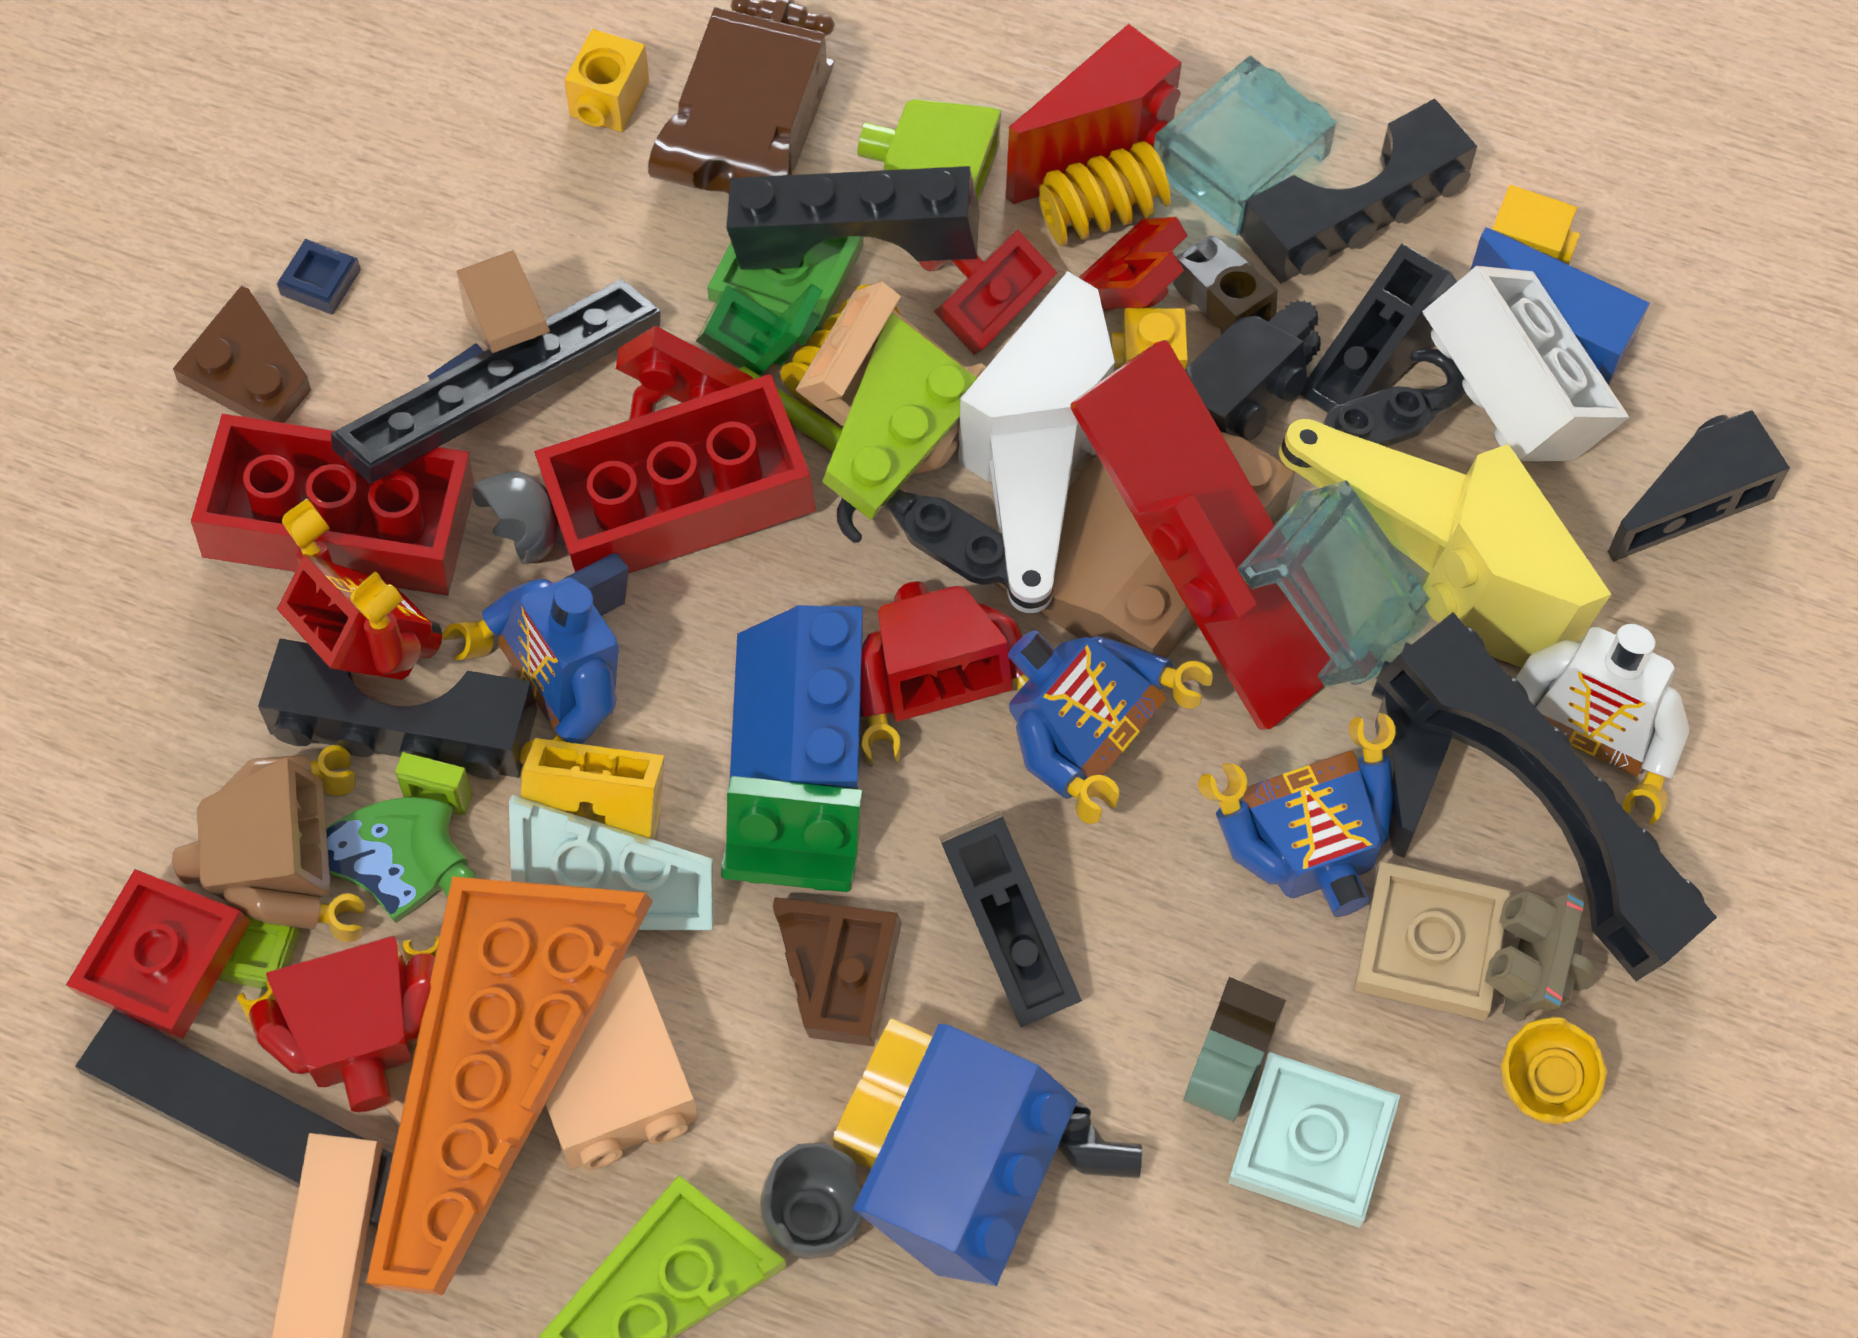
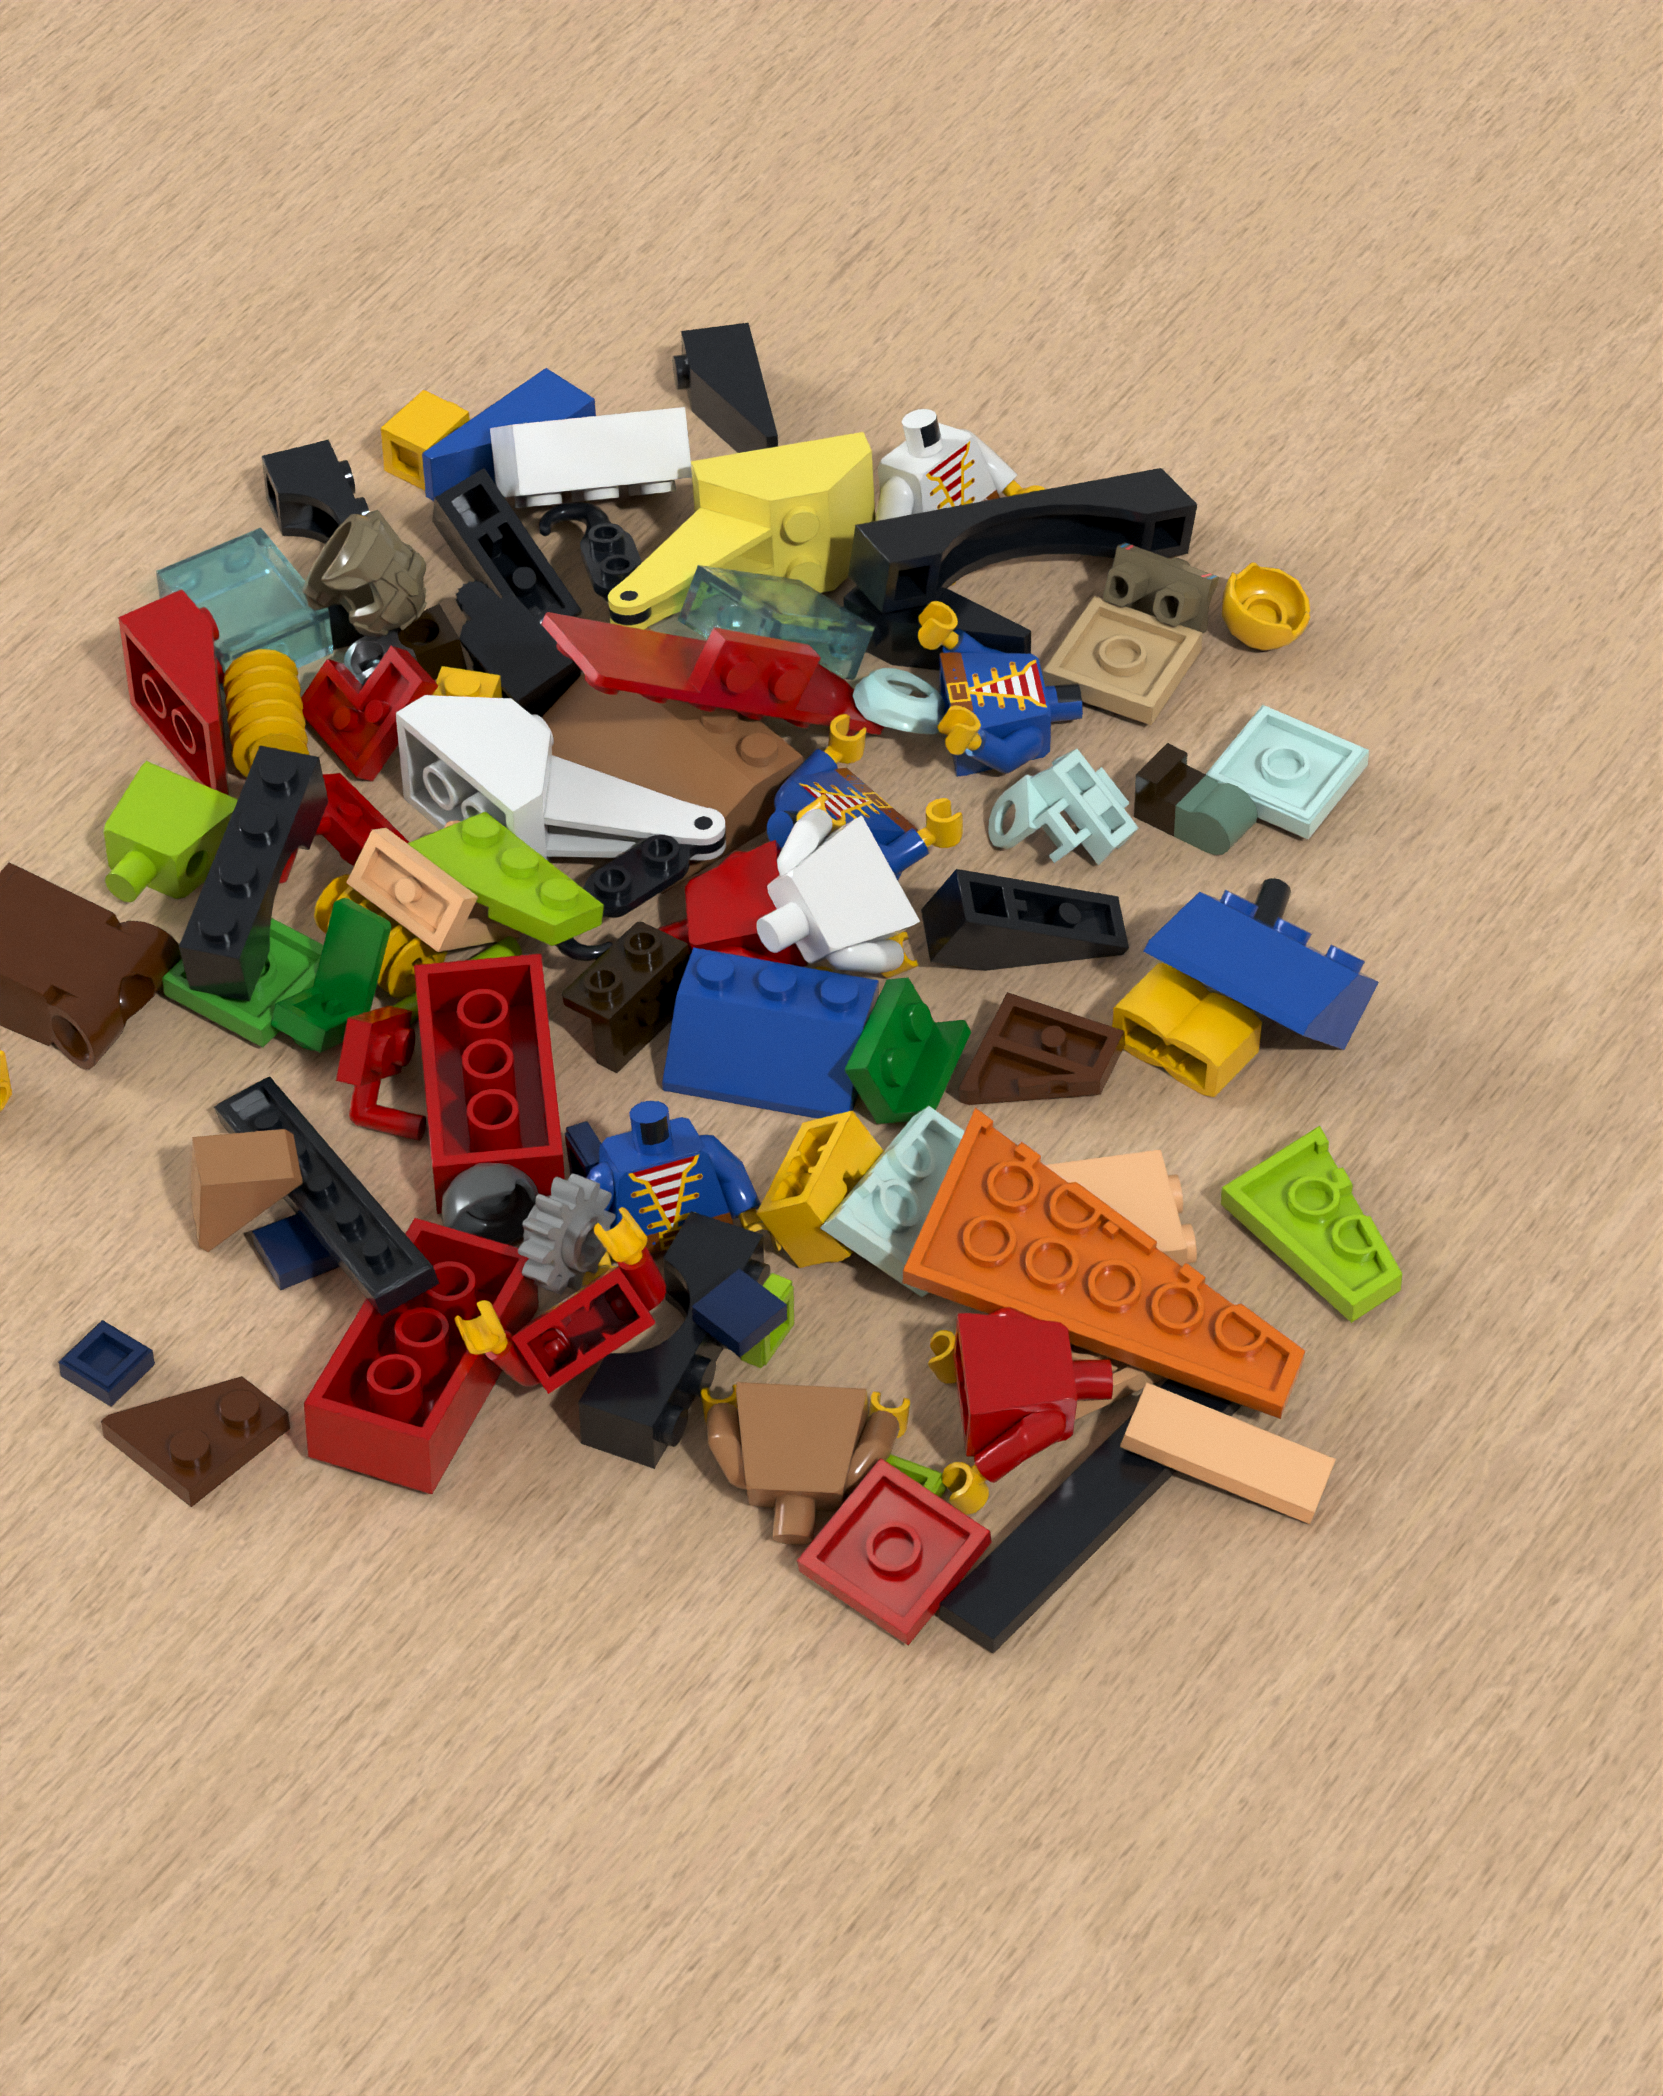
camera: 75 degrees left, 15 degrees down
(394, 747) = (739, 1312): none -> dark blue tile
(397, 852) = (834, 1351): bright green arm -> none
(452, 574) = (561, 1233): none -> light grey gear
(811, 1201) = (1270, 1101): dark grey hair -> none
(814, 566) = (629, 992): none -> dark brown bracket
(927, 710) = (838, 897): none -> white torso
(1169, 892) = (1070, 786): none -> light aqua piece
(1257, 212) = (370, 575): none -> dark tan helmet
(1271, 728) = (886, 701): none -> light aqua piece

